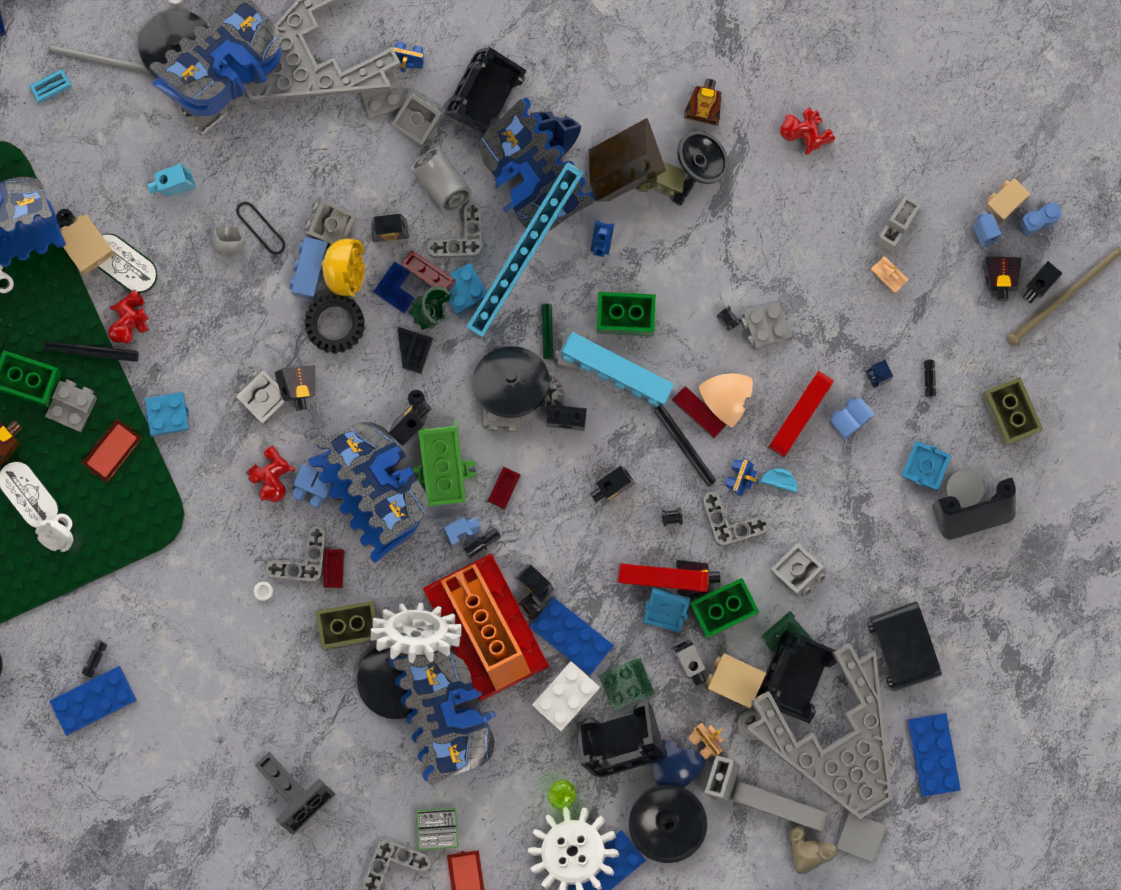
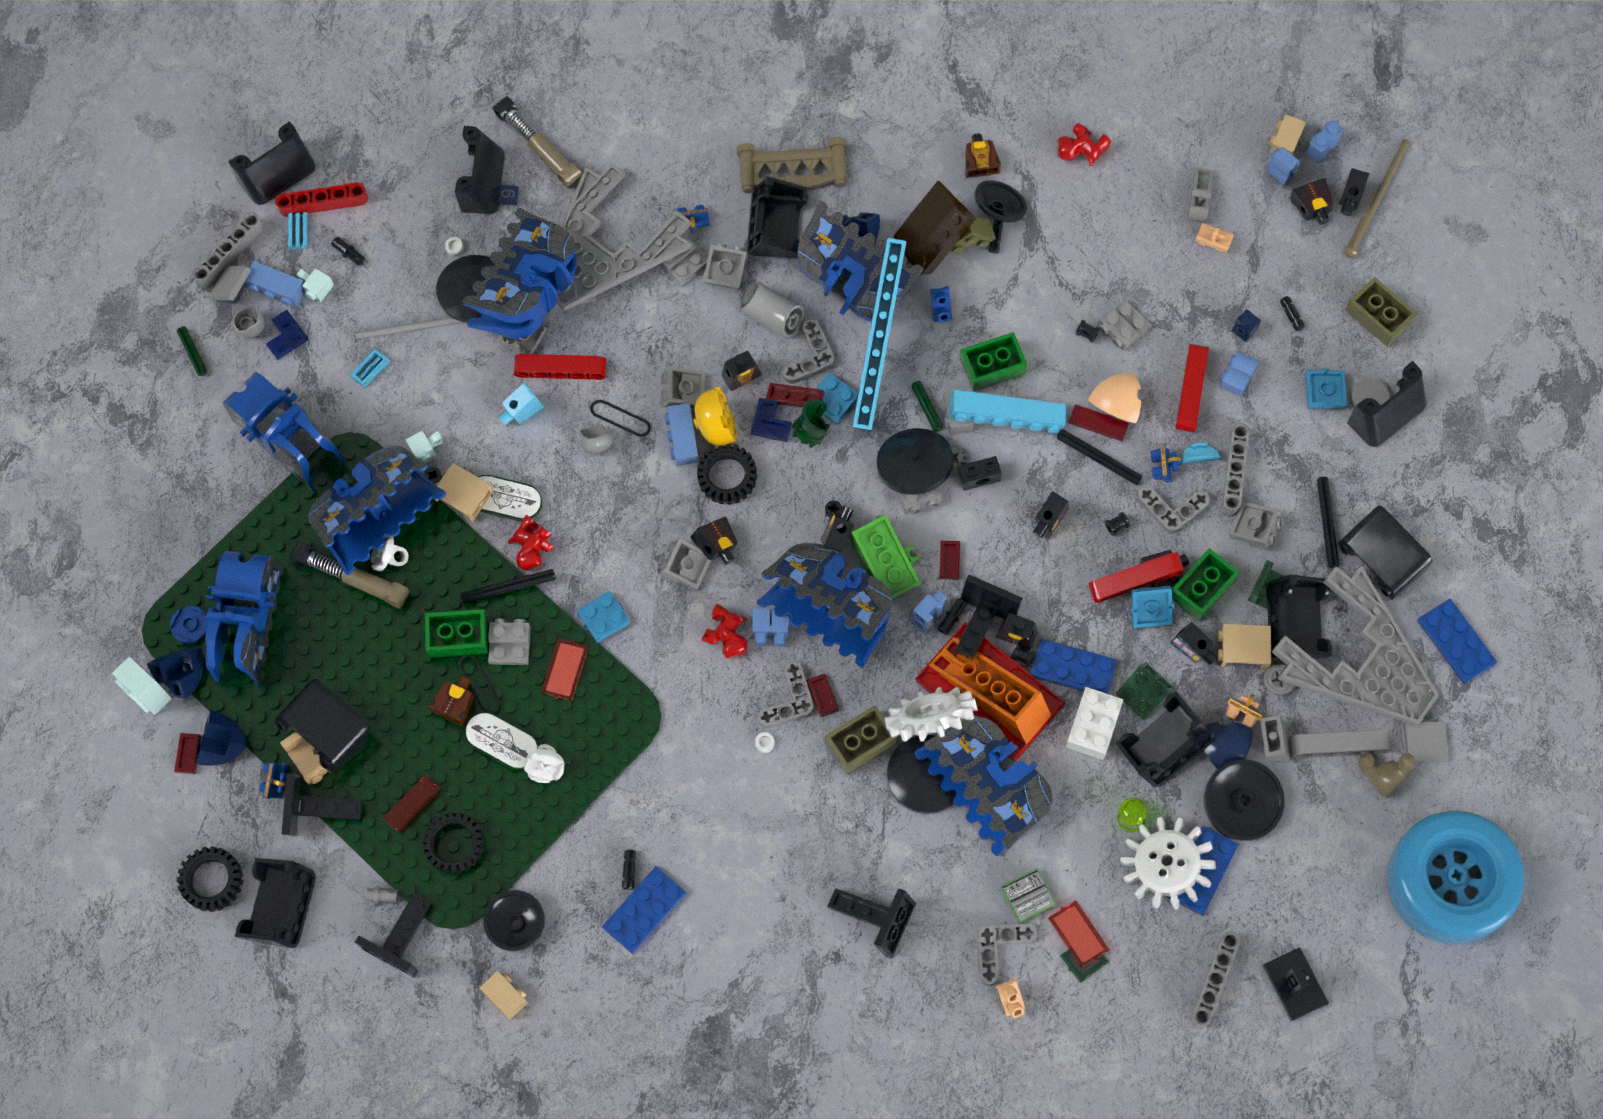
camera: 20 degrees left, 10 degrees down
(22, 436) = (486, 679): none -> black piece
(67, 184) = (422, 446): none -> light aqua brick
(224, 156) = (560, 366): none -> red beam
(414, 349) = (811, 469): black wing -> none
(519, 547) = (989, 602): none -> black piece
(564, 46) = (831, 157): none -> dark tan piece
(807, 500) = (1231, 476): none -> light grey beam
(868, 594) = (1328, 522): none -> black axle

